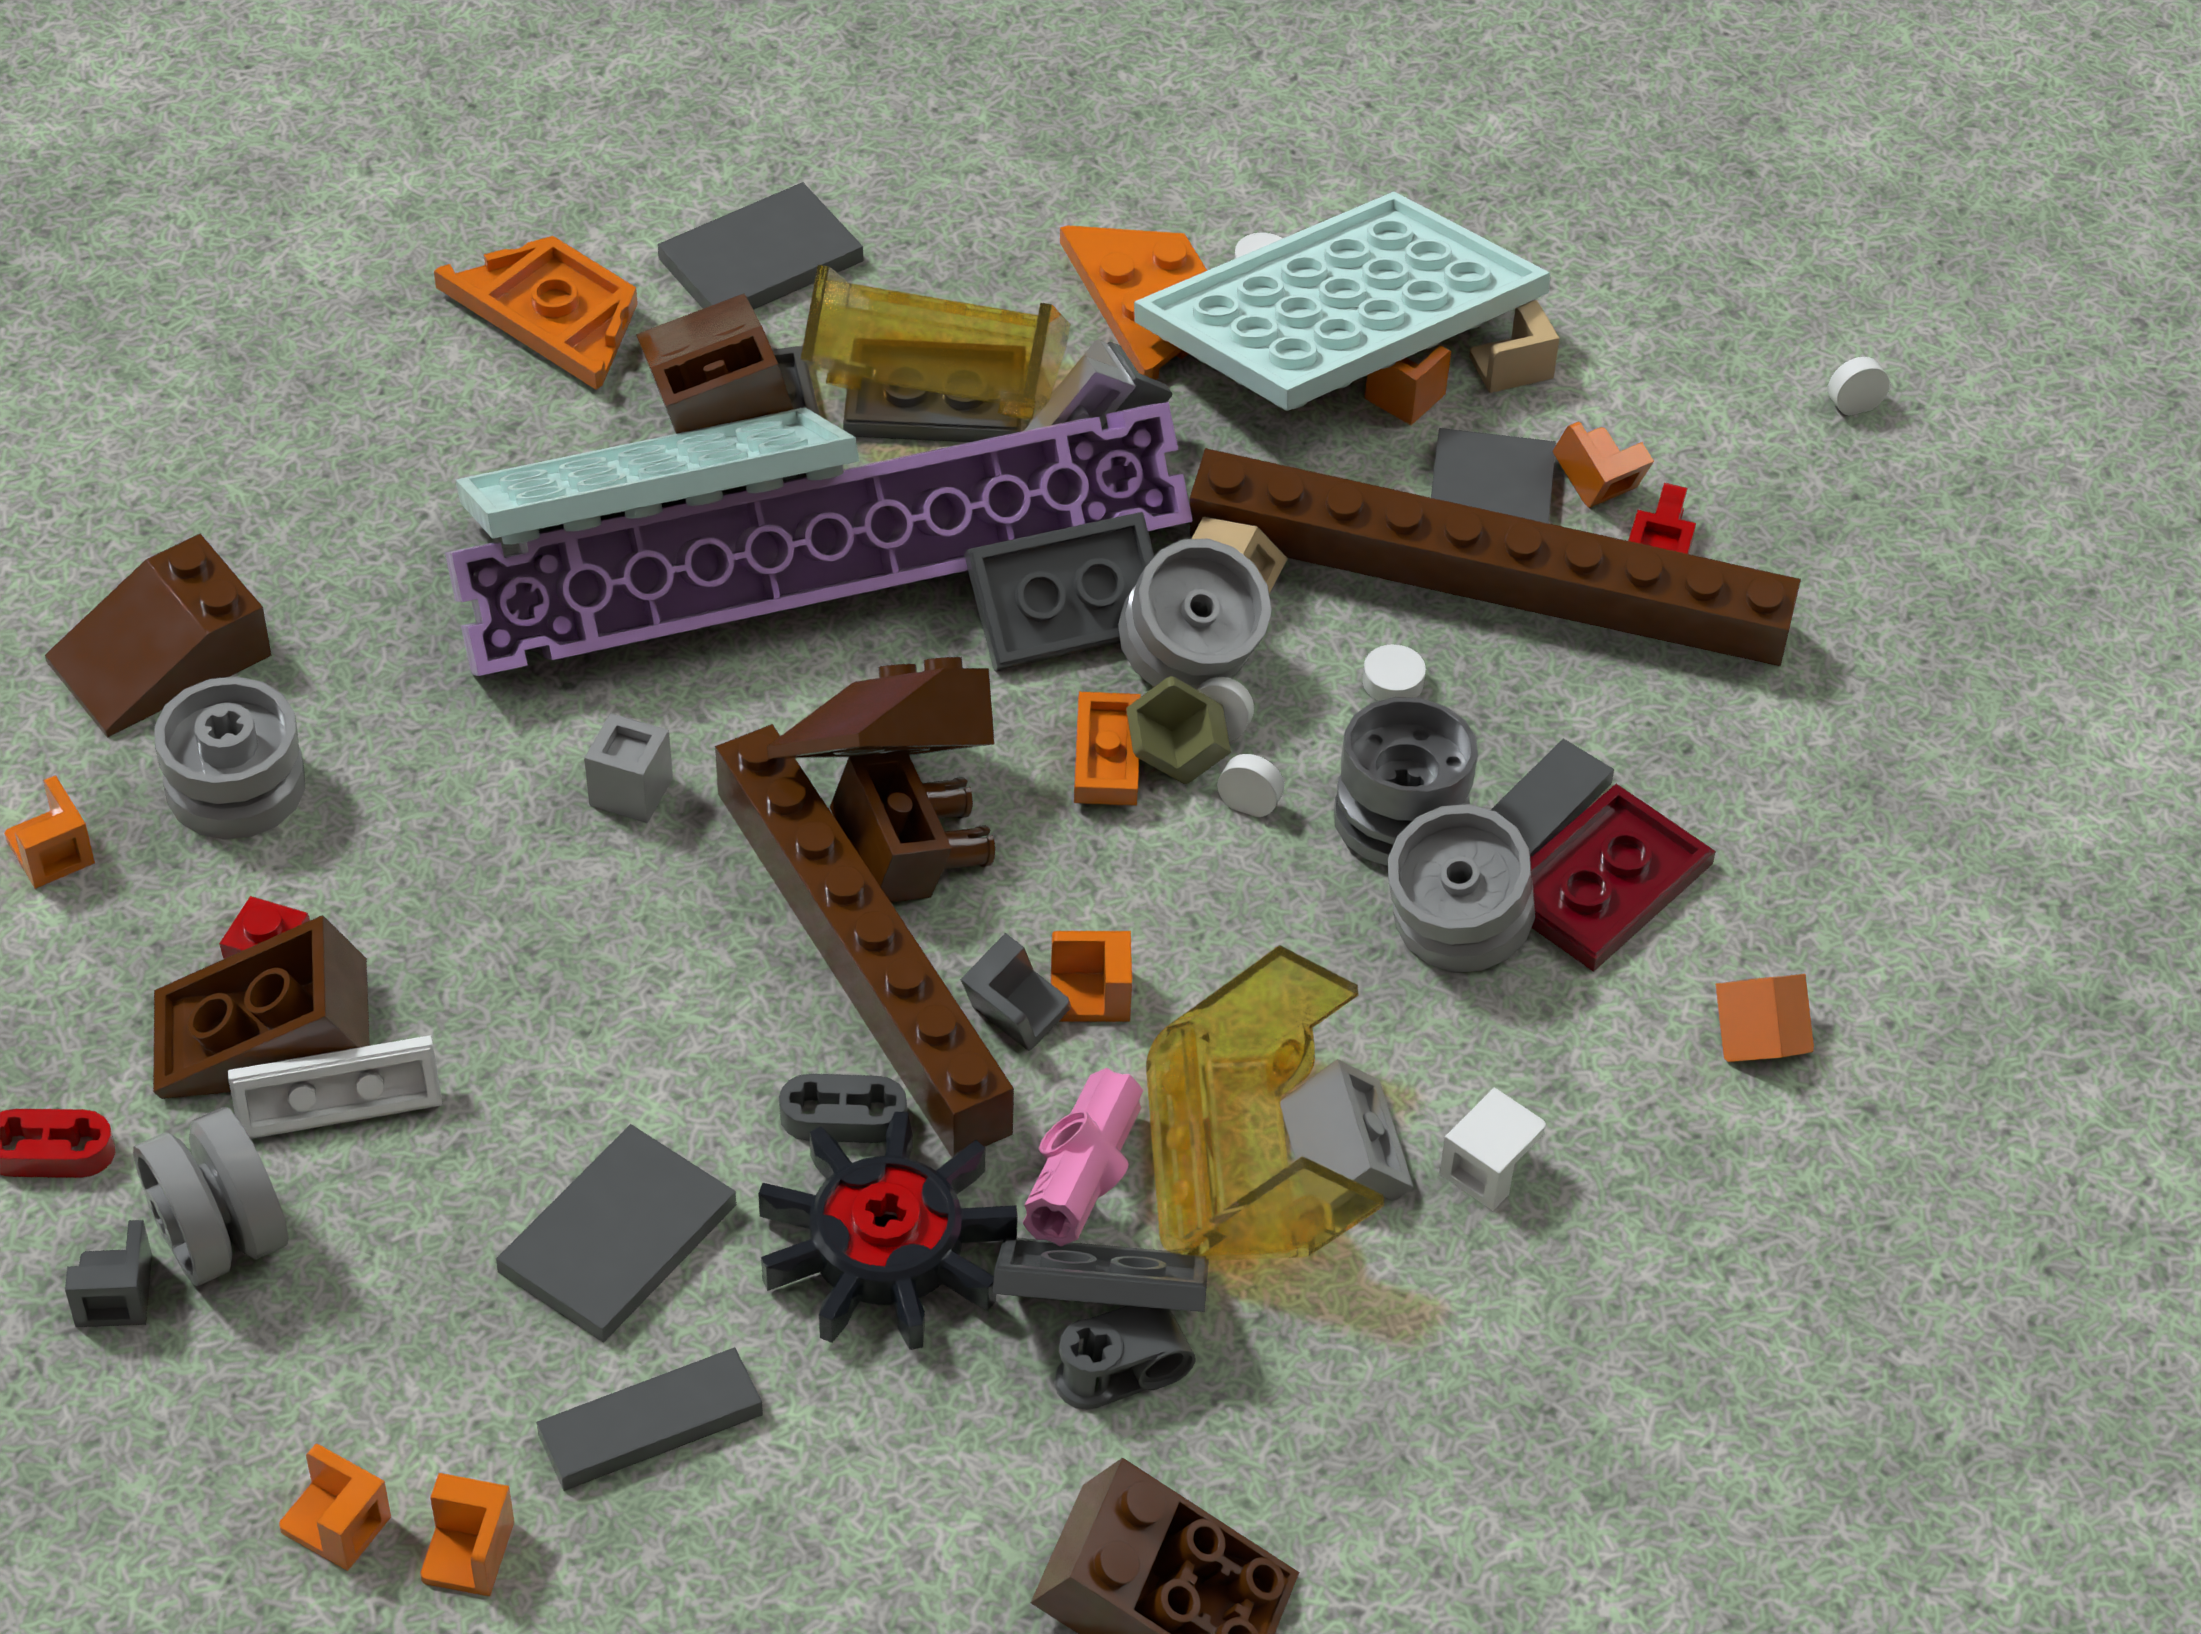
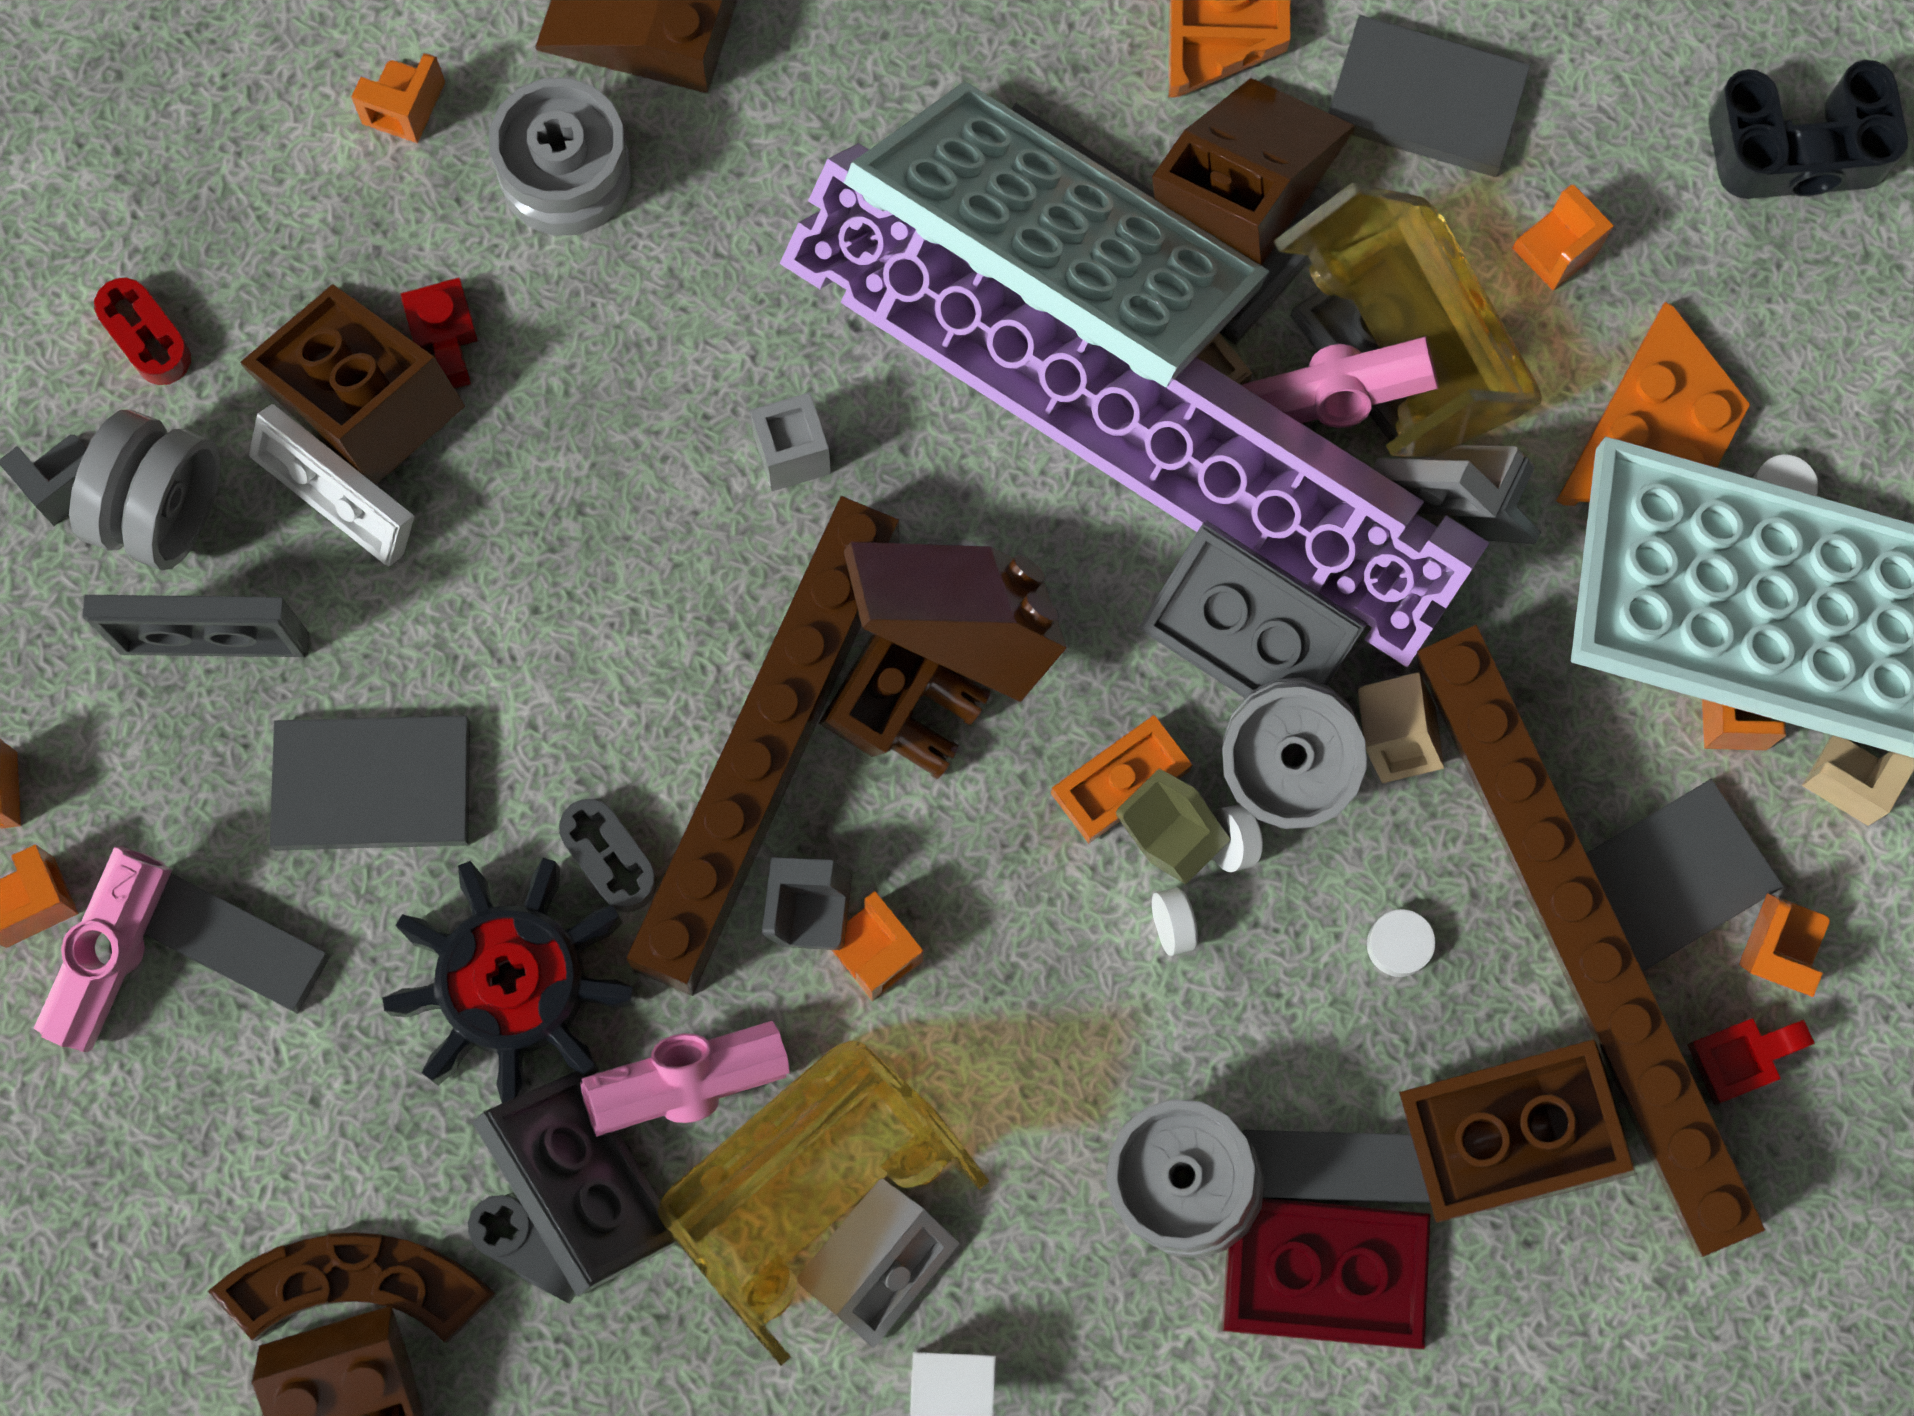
camera: 50 degrees right, 25 degrees up
(368, 1236) = (197, 625): none -> dark grey tile
(593, 1528) = (84, 984): none -> bright pink piece
(948, 409) = (1346, 383): none -> bright pink piece
(955, 243) = (1564, 238): none -> orange panel
(1021, 1510) = (352, 1270): none -> reddish brown tile
(1047, 70) = (1813, 156): none -> black beam
(1398, 765) = (1298, 1042): flat silver wheel -> none
(1605, 678) = (1517, 1132): none -> reddish brown slope

